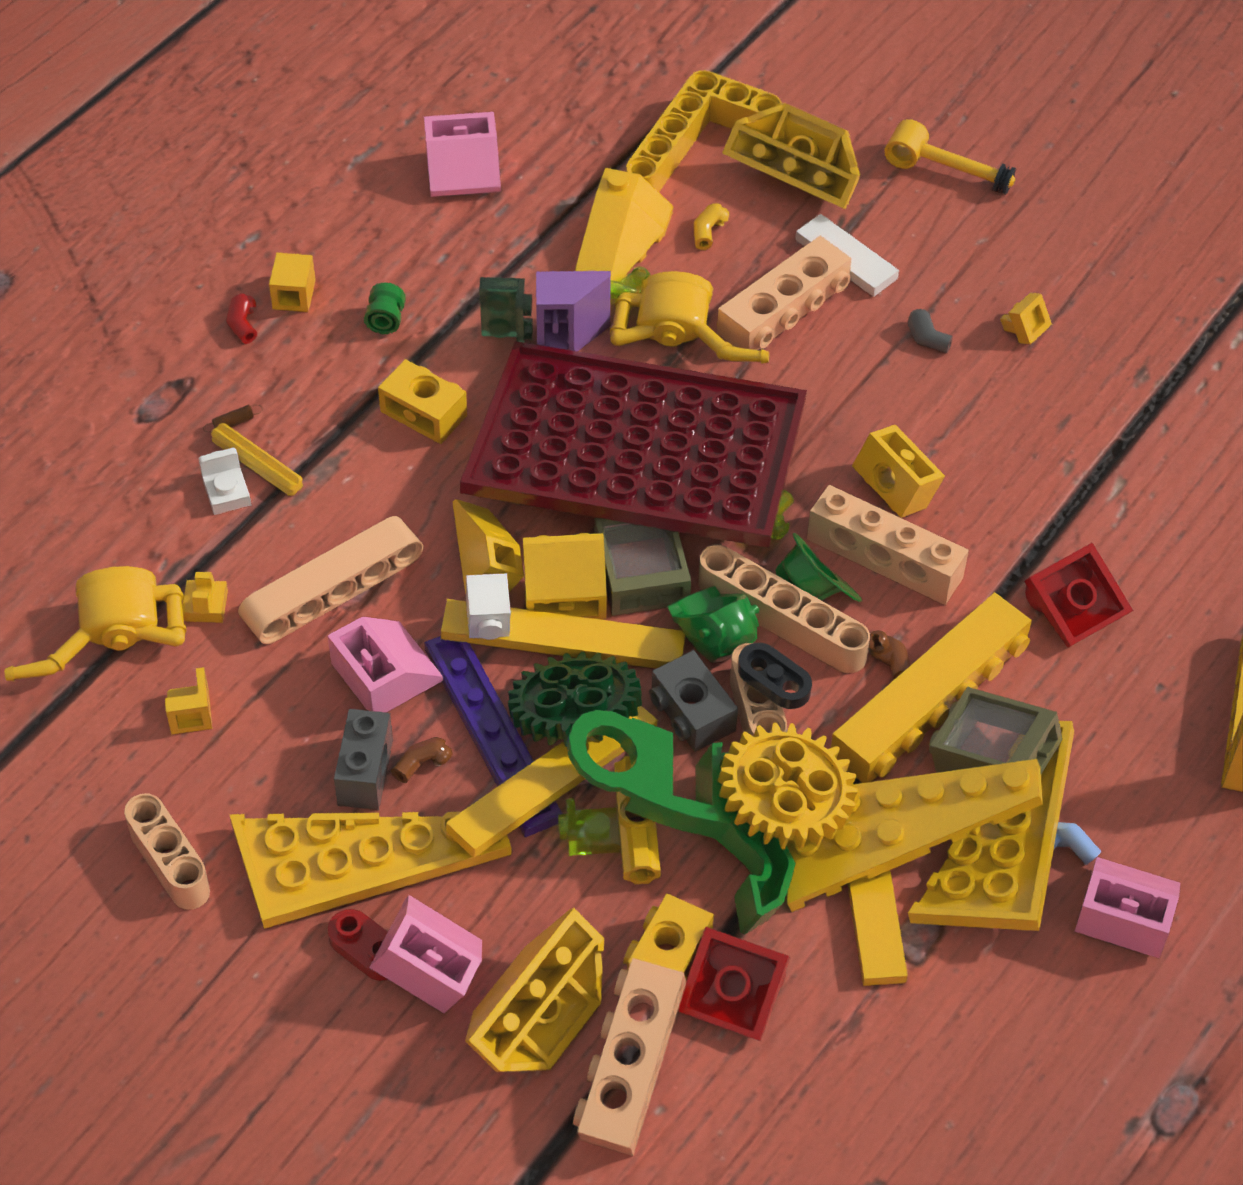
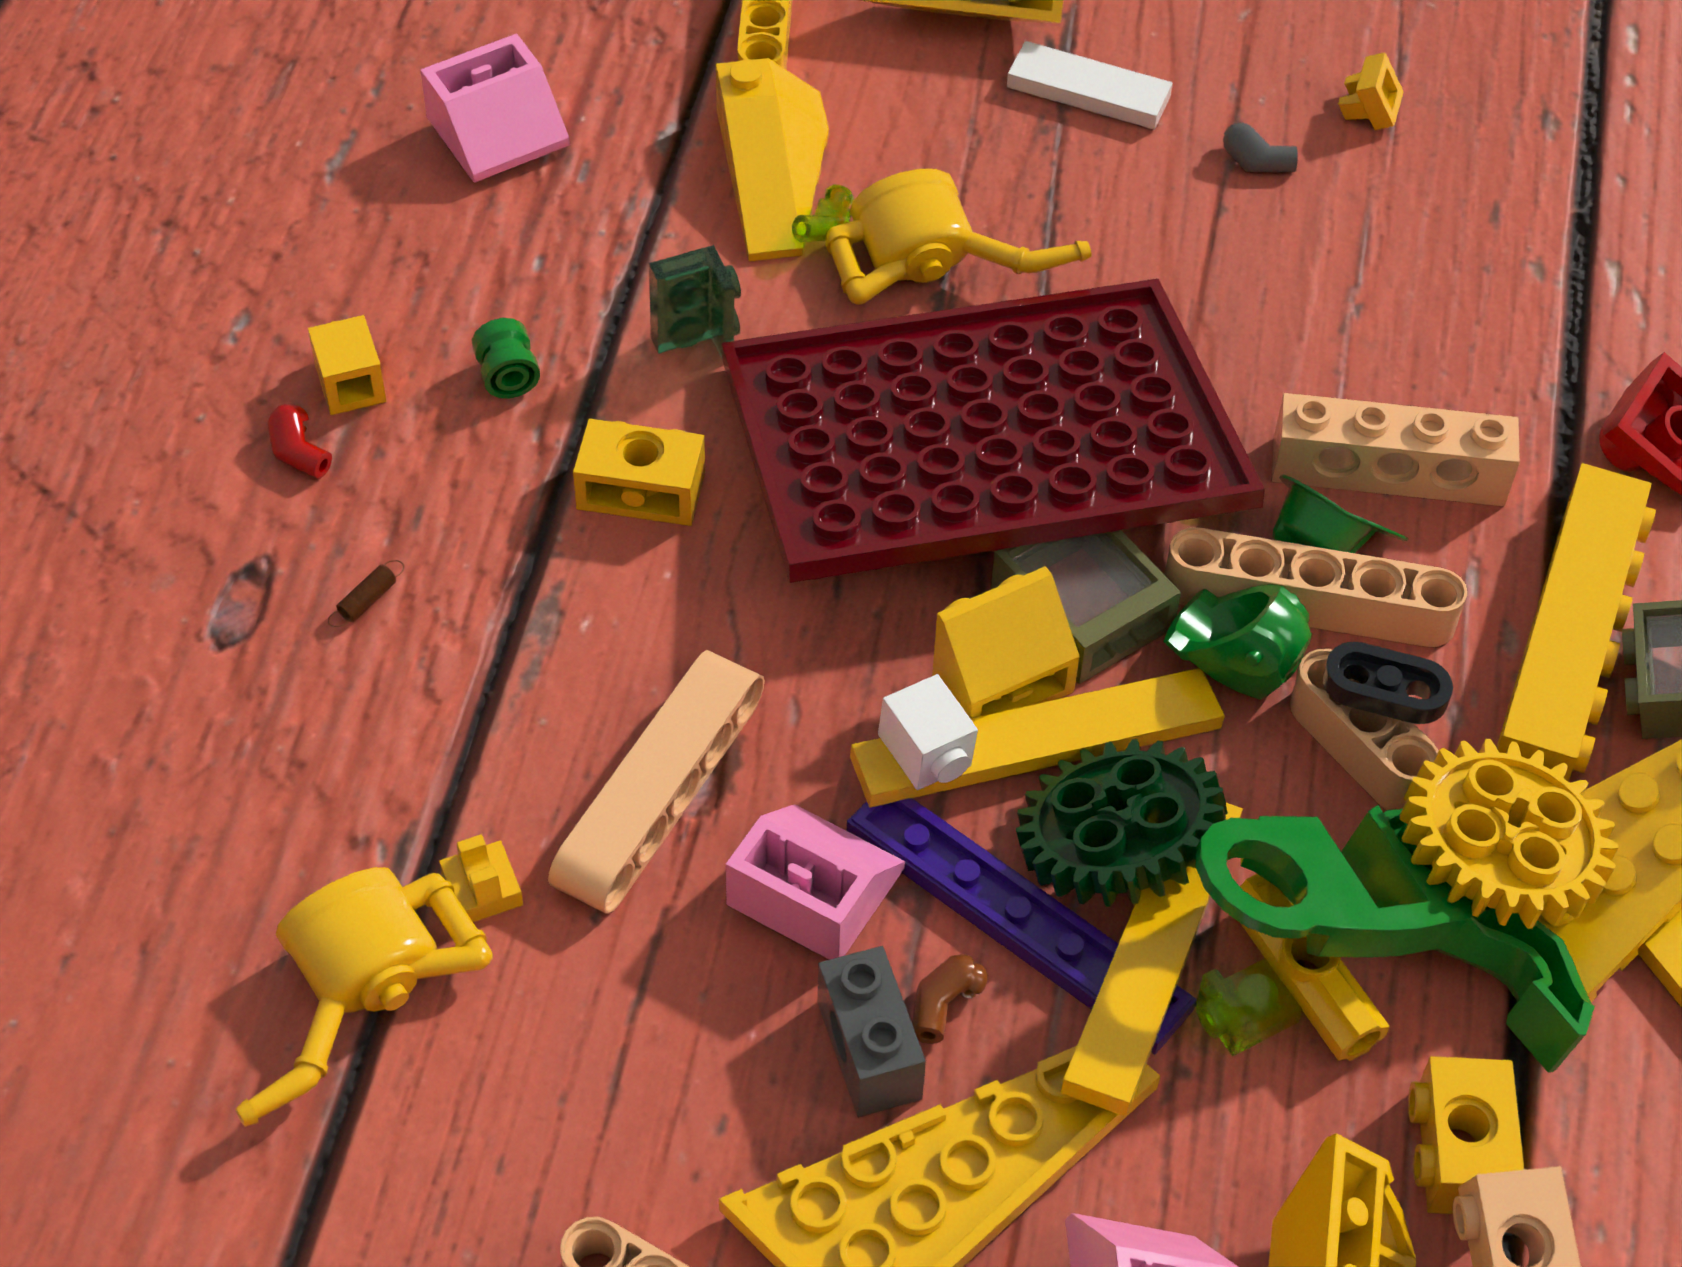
camera: 25 degrees left, 0 degrees up
(189, 707) = (555, 1051): yellow panel -> none
(224, 481) = (410, 691): white bracket -> none
(258, 459) = (438, 641): yellow axle -> none
(485, 544) = (859, 650): yellow slope -> none
(572, 307) = (780, 268): medium lavender slope -> none
(691, 681) = (1261, 734): dark grey brick -> none
(702, 225) = (878, 99): yellow arm -> none
(733, 983) = (1604, 1141): red slope -> none
(784, 295) = (1050, 161): light nougat brick -> none
(889, 651) = (1491, 597): dark orange arm -> none
(898, 471) = (1378, 337): yellow brick -> none

